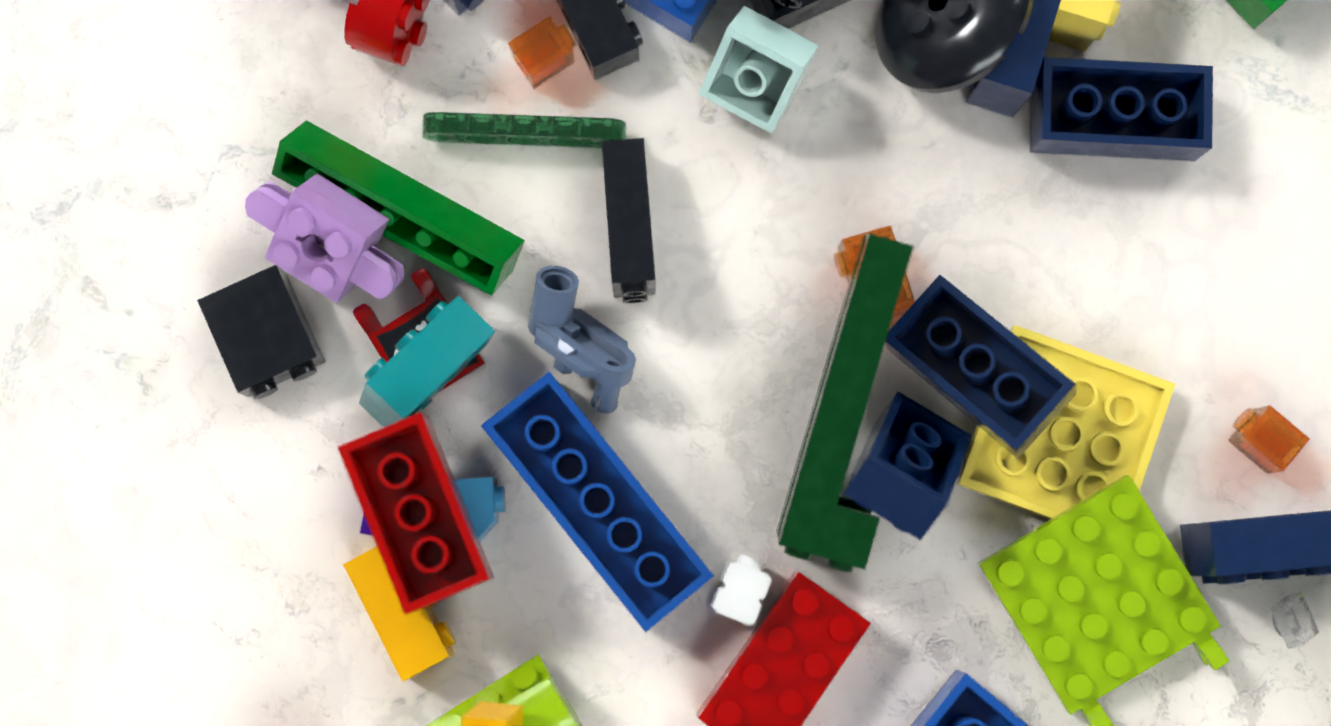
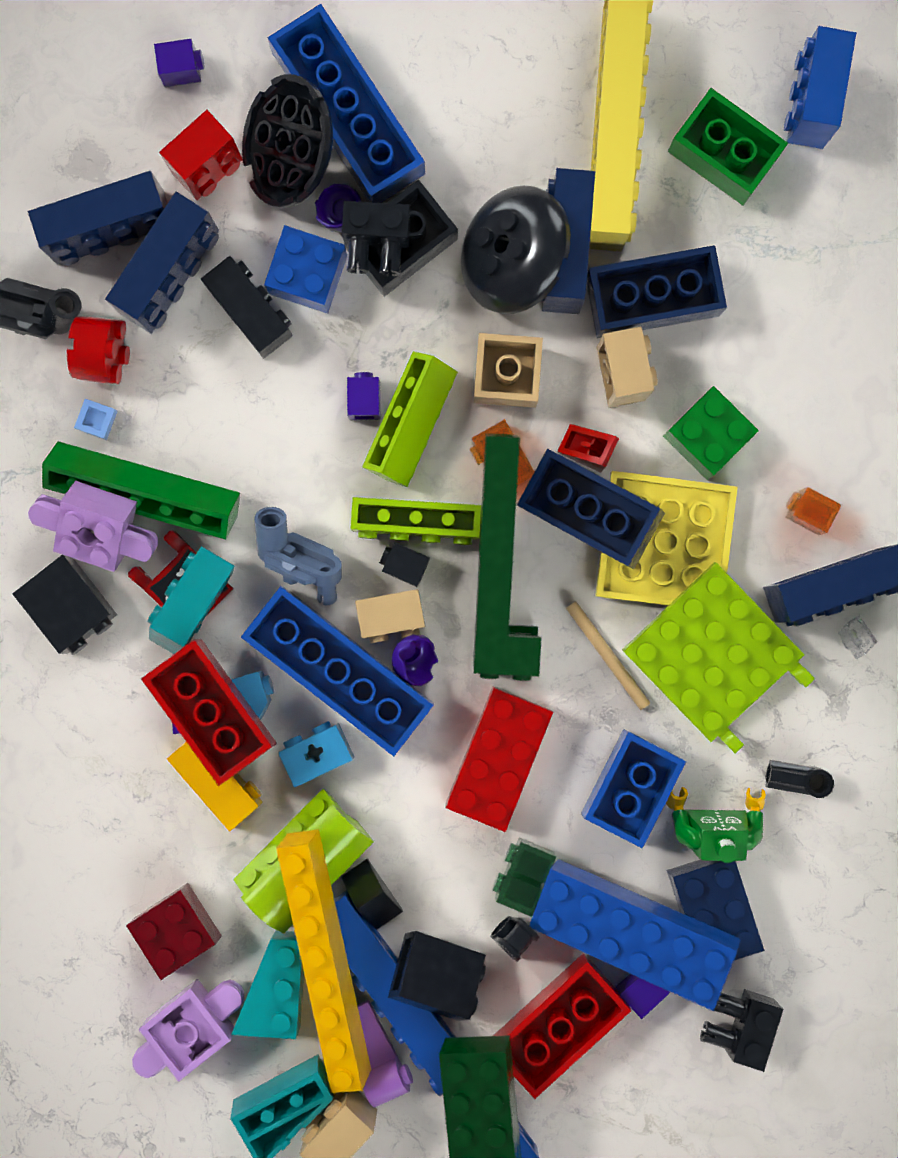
camera: 10 degrees left, 5 degrees up
(362, 105) = (95, 419): none -> light blue plate
(520, 621) = (304, 768): none -> dark azure brick
(521, 129) = (220, 410): clear green beam -> none
(543, 51) = (219, 347): clear orange brick -> none
(628, 220) = (312, 459): black slope -> none
(683, 445) = (389, 615): none -> tan brick
(701, 510) = (414, 659): none -> dark purple hair
(713, 156) = (363, 397): none -> dark purple brick
(716, 382) = (404, 564): none -> black brick
(741, 589) = (455, 710): white brick -> none
(746, 327) = (415, 518): none -> lime brick
(757, 69) = (380, 325): light aqua brick -> none
(772, 193) = (410, 418): none -> lime brick
(908, 164) = (508, 370): none -> tan brick
(908, 466) = (555, 593): dark blue brick -> none
(964, 583) = (608, 655): none -> tan bar
(992, 286) = (588, 447): none -> red slope
(1063, 194) = (626, 366): none -> tan brick
(1154, 306) = (710, 433): none -> green brick

